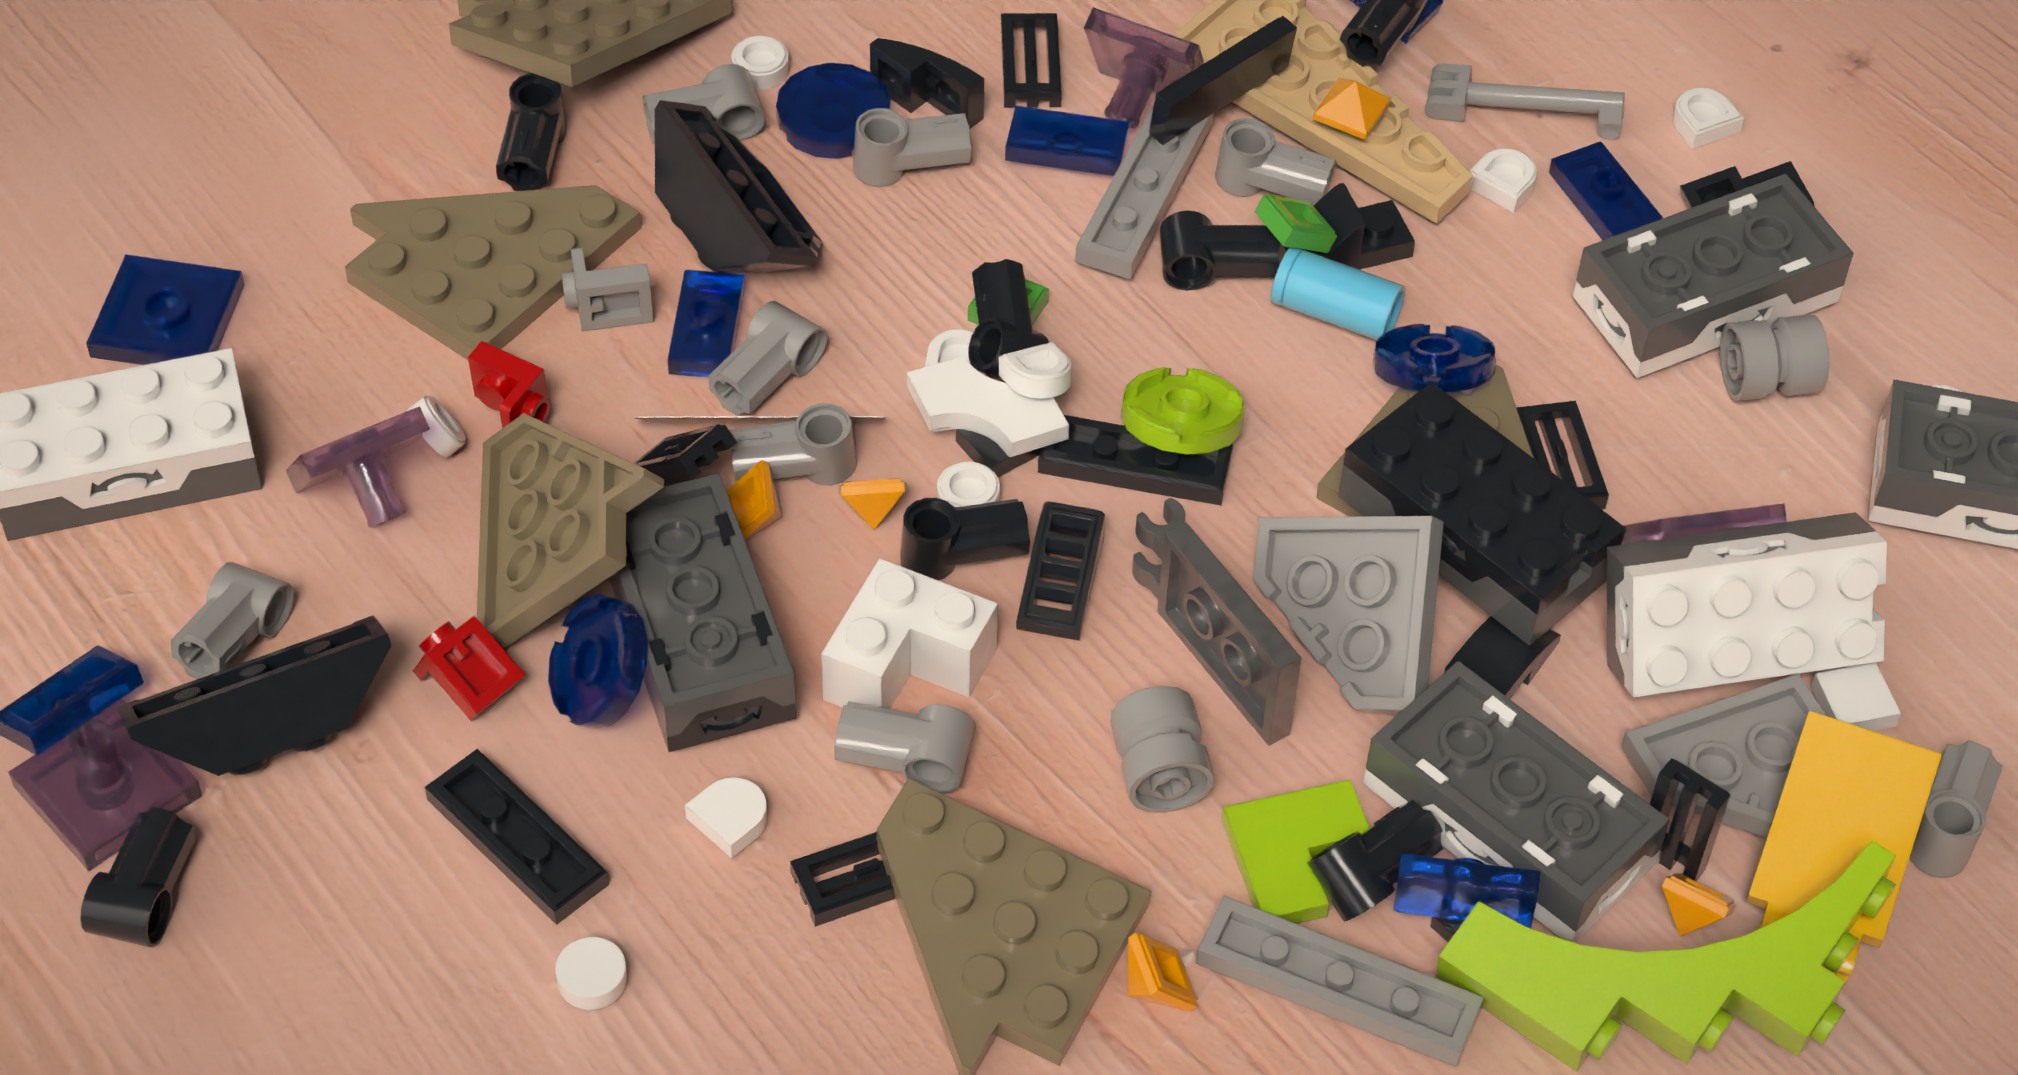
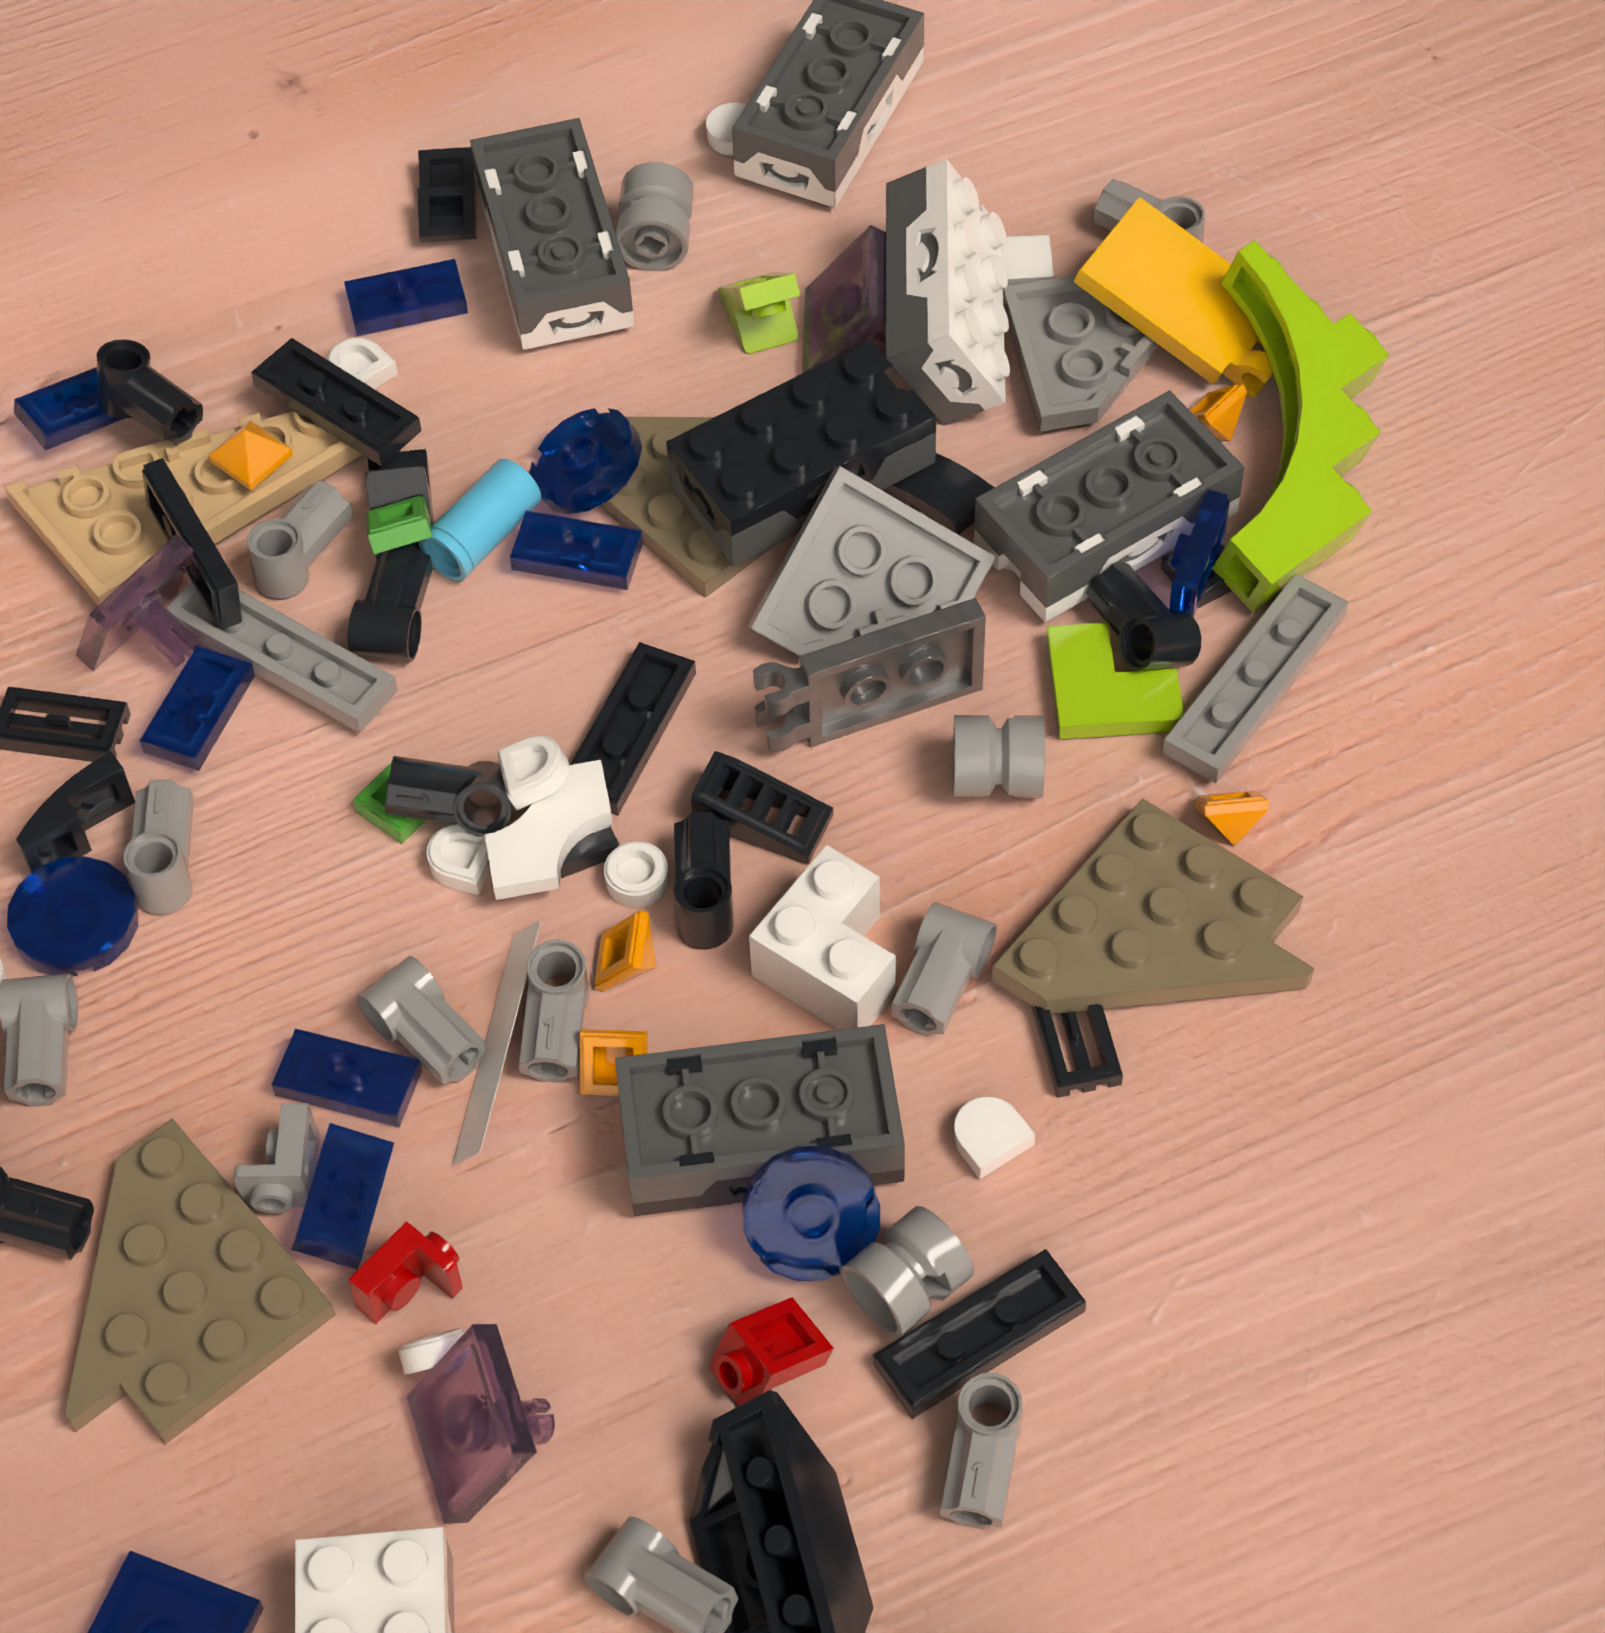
camera: 75 degrees left, 5 degrees up
(385, 843) = (982, 1454): none -> light grey piece
(549, 523) = (625, 1233): dark tan wing -> none
(556, 753) = (899, 1278): none -> light grey wheel
(581, 337) = (343, 1196): none -> clear blue plate
(591, 973) = (1156, 1279): white tile -> none
(680, 455) = (565, 1116): black tile -> none
(726, 196) = (206, 1022): black wedge -> none
(1182, 411) = (590, 672): lime tile -> none
(1329, 377) = (576, 550): none -> clear blue plate
(1434, 155) = (336, 401): none -> black tile
(1453, 91) = (235, 378): light grey hinge -> none
(1595, 487) = (709, 387): black tile -> none
(1673, 846) = (1169, 372): black tile -> none
(1693, 470) = (762, 310): none -> lime slope
(1705, 117) = (329, 204): white tile -> none

